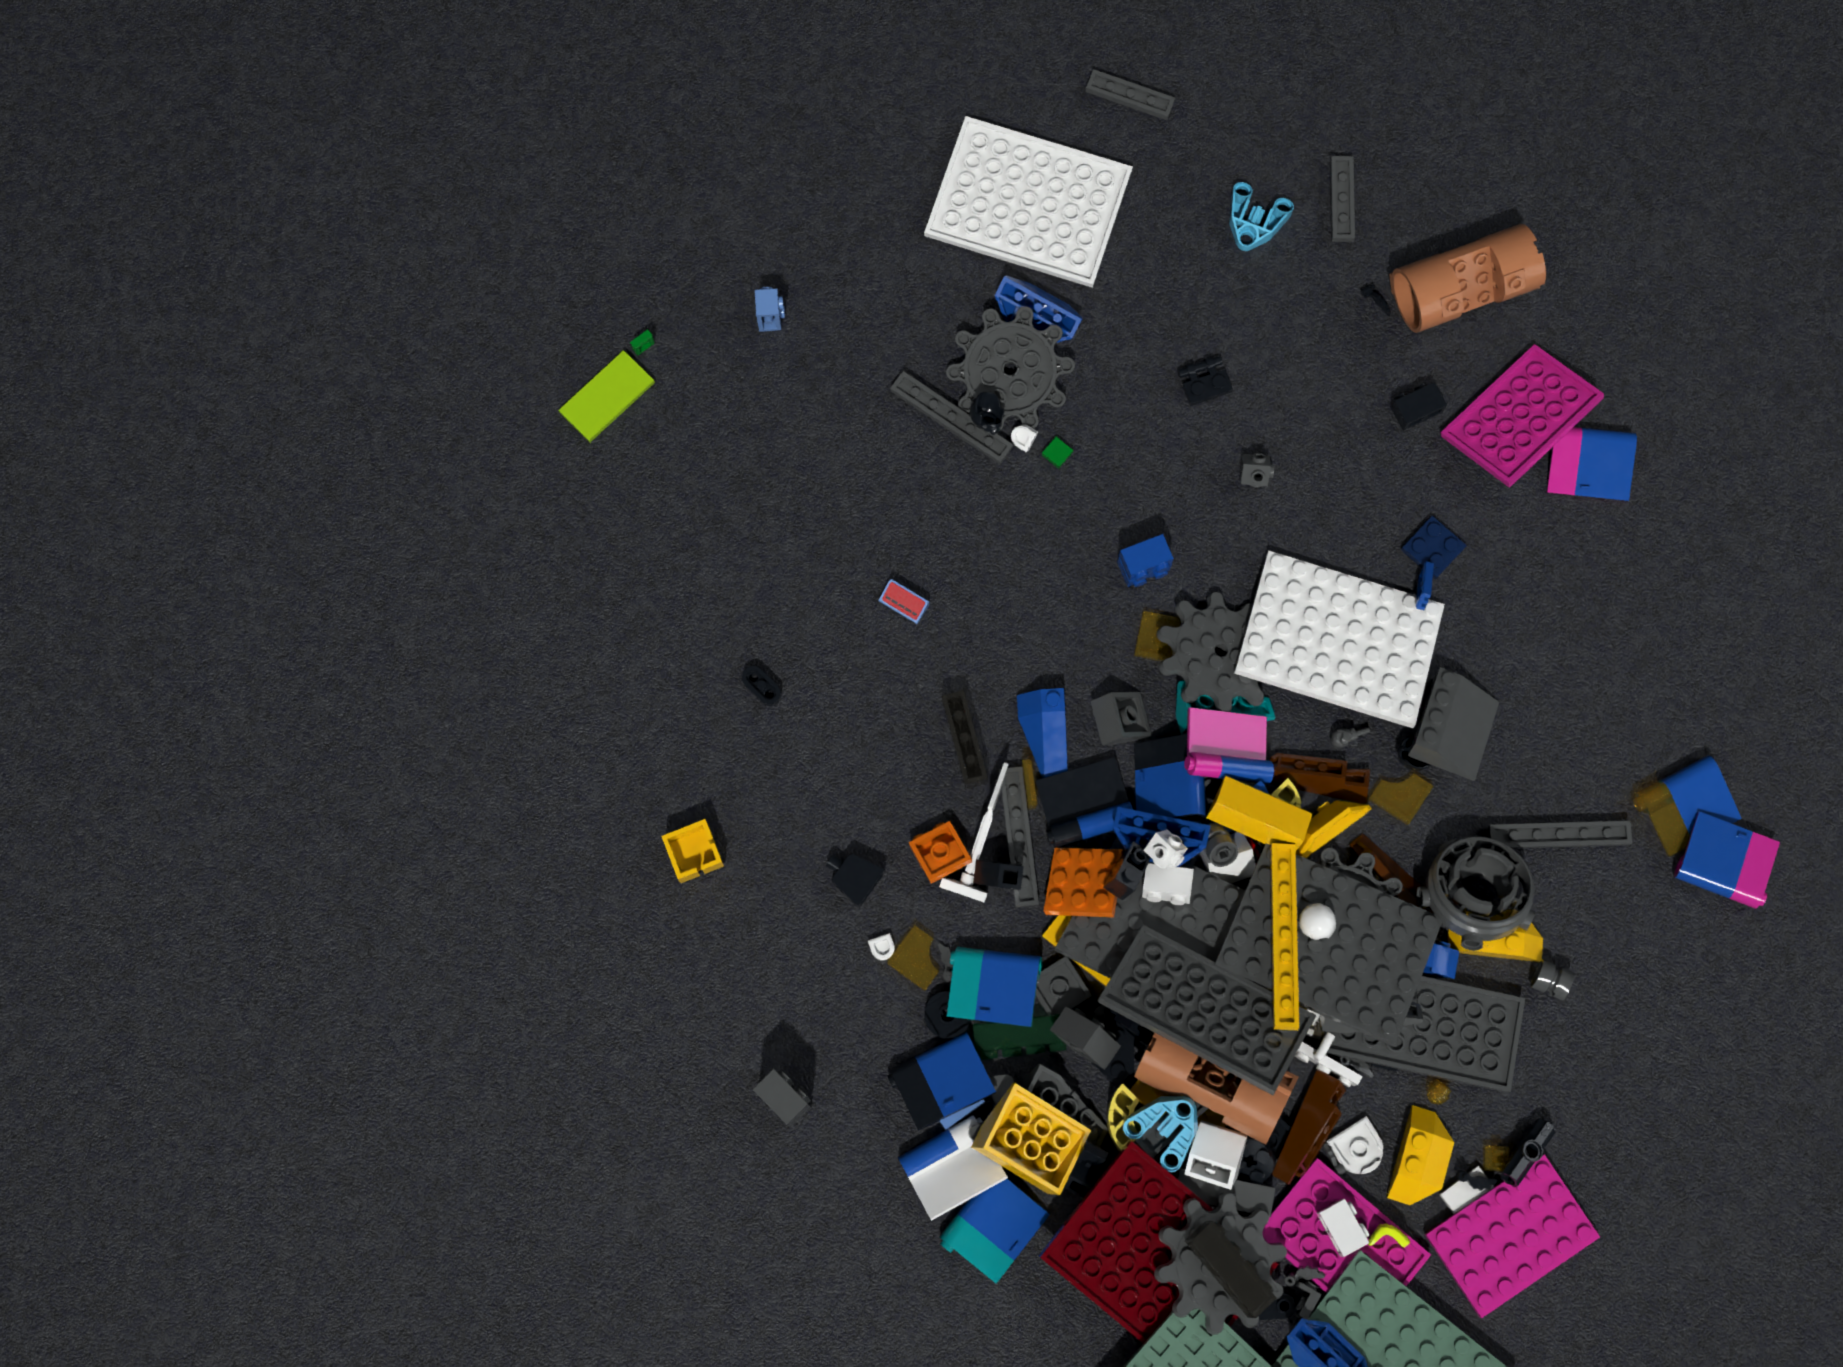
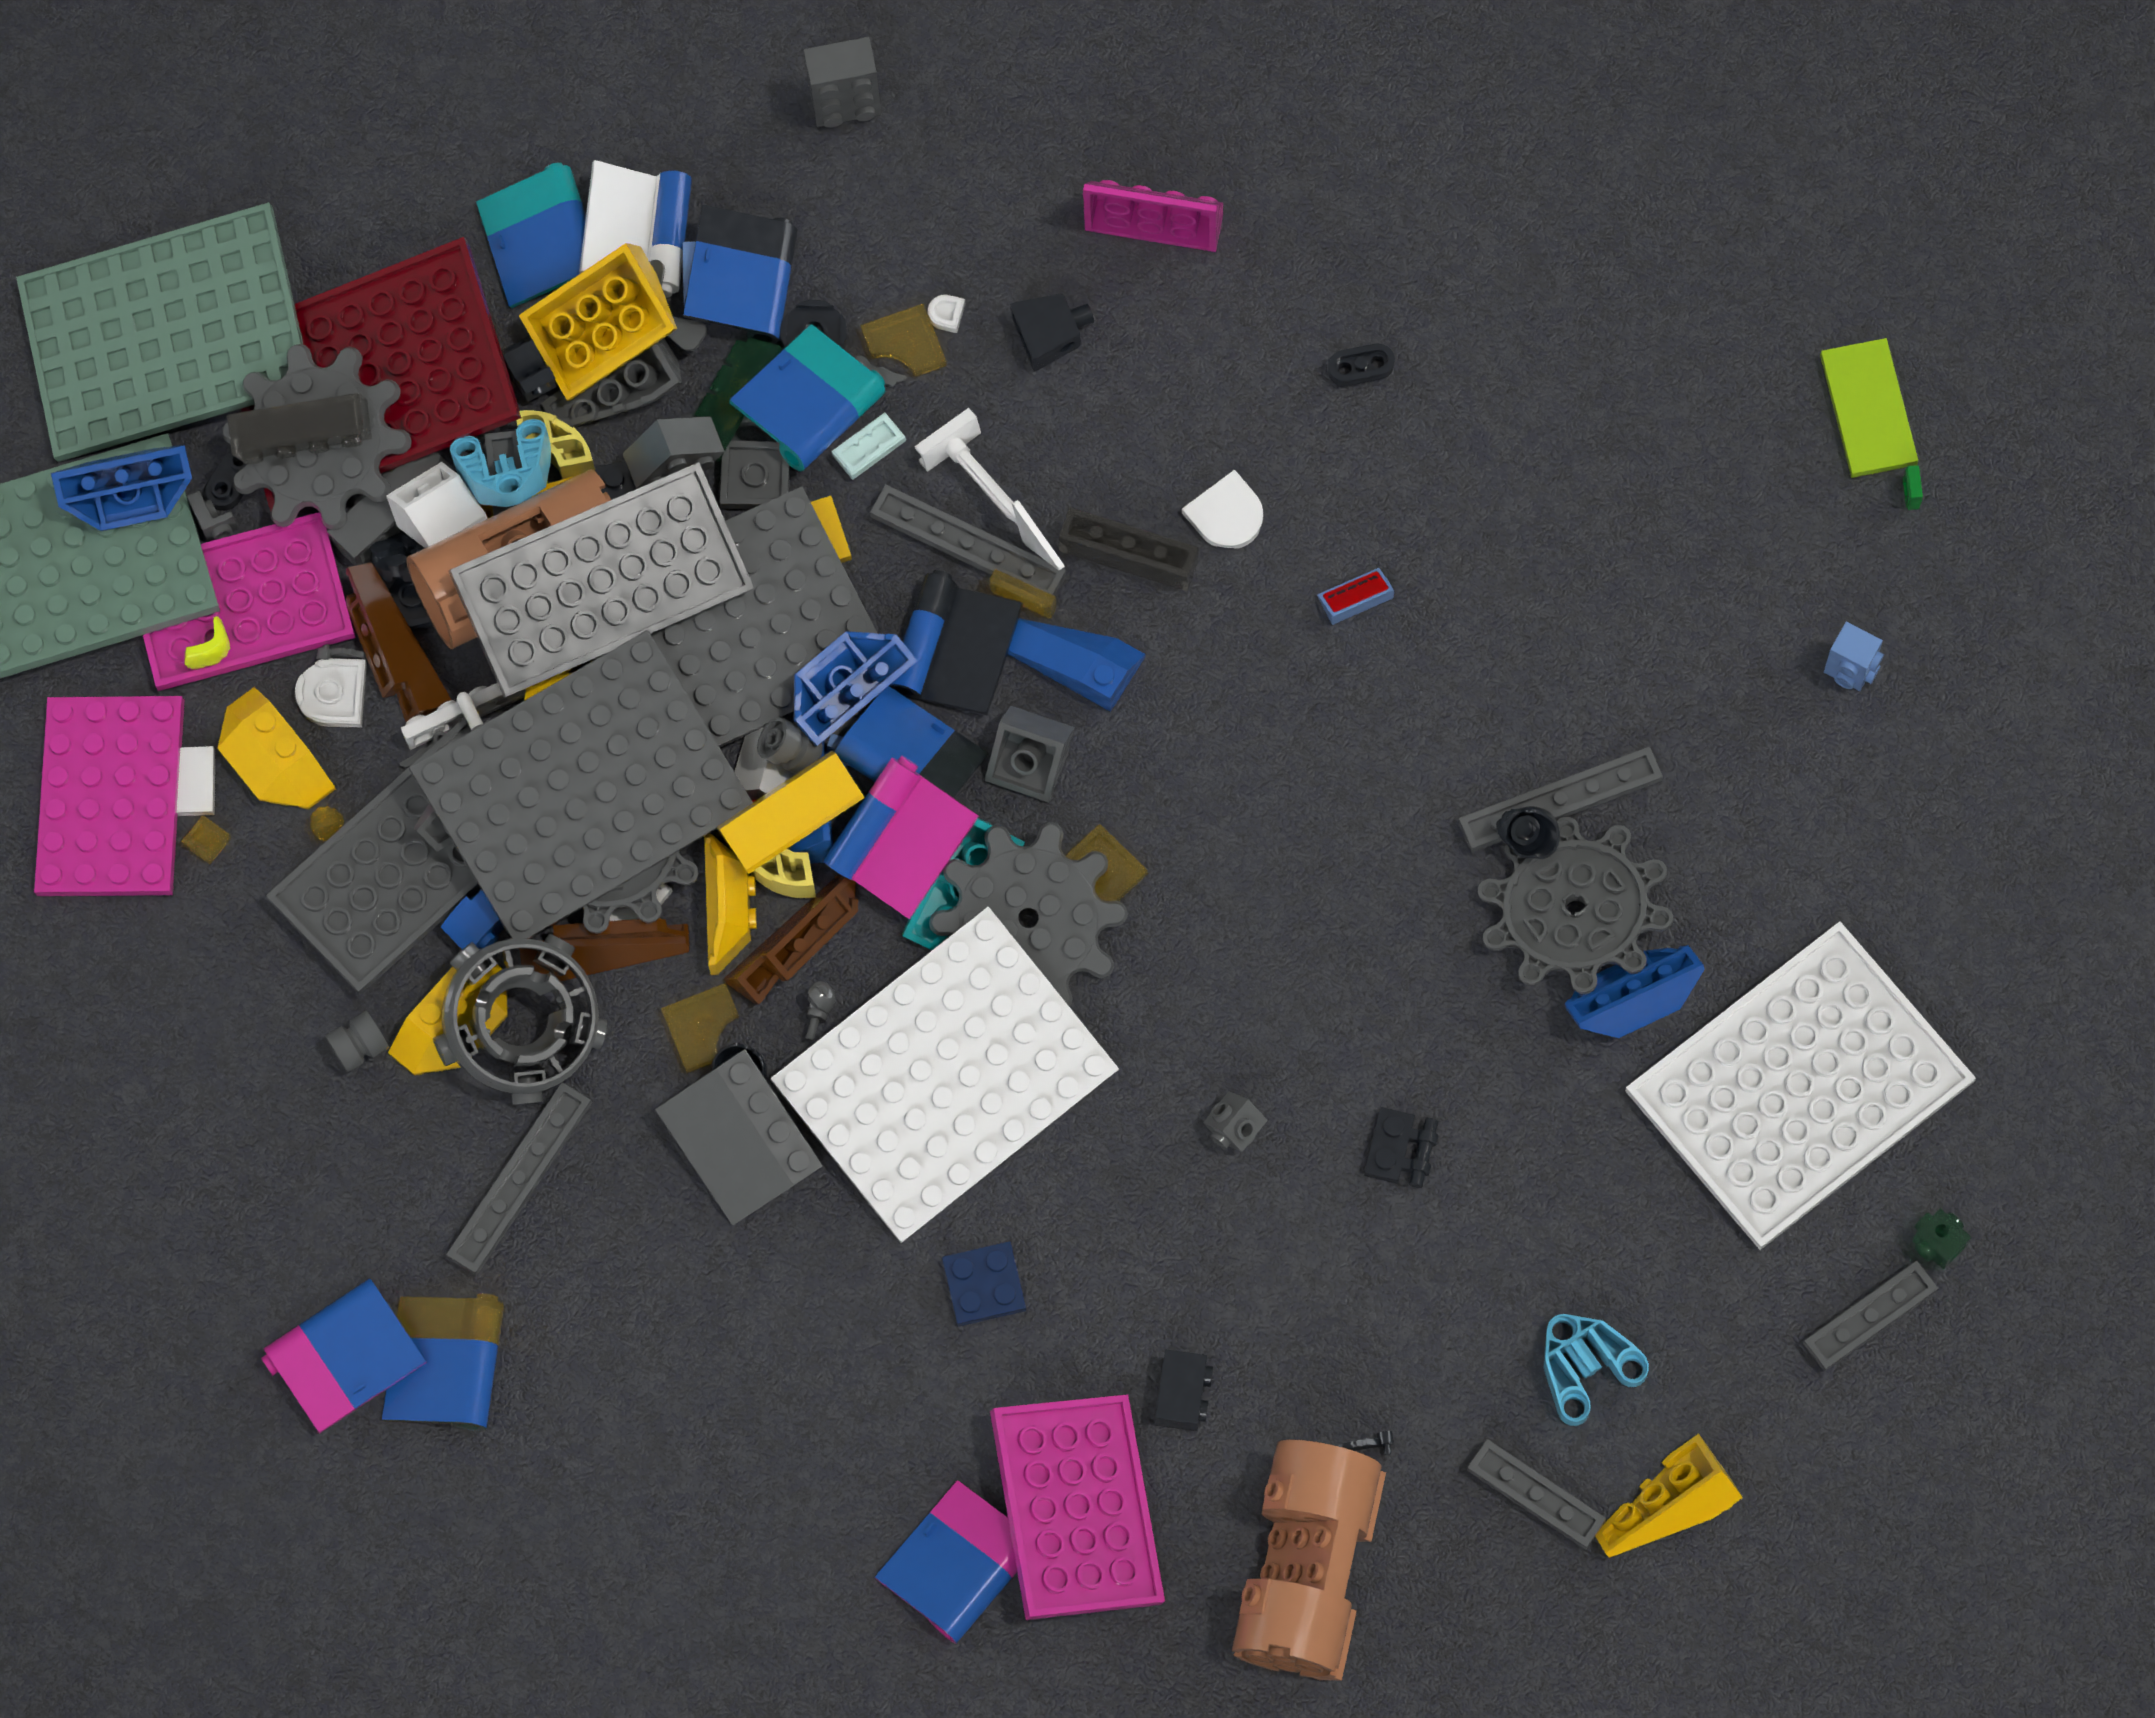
camera: 125 degrees right, 5 degrees down
(692, 851) = (1209, 161): yellow piece -> none
(743, 861) = (1152, 215): none -> dark pink slope
(901, 704) = (1226, 513): none -> white tile
(939, 851) = (1011, 436): orange plate -> none
(996, 934) = (868, 446): none -> light aqua plate
(998, 874) = (931, 480): black slope -> none
(1023, 437) = (1474, 870): white tile -> none
(1057, 452) = (1427, 901): green tile -> none
(1066, 81) = (1940, 1237): none -> clear green brick
(1078, 882) = (857, 571): orange plate -> none
(1127, 871) = (829, 611): black slope -> none
(1145, 561) = (1207, 896): blue piece -> none
(1166, 849) = (821, 663): white brick -> none
(1167, 884) = (783, 655): white brick -> none
(1284, 937) = (623, 725): yellow plate -> none
(1296, 131) = (1681, 1496): none -> yellow wedge
(1303, 1273) = (239, 532): dark grey piece -> none
(1317, 921) = (613, 781): white hair -> none
(1343, 1227) = (256, 601): white brick -> none
(1424, 585) = (939, 1223): blue tile -> none
(1475, 1182) = (195, 793): black piece -> none
(1534, 1142) = (180, 846): black piece -> none

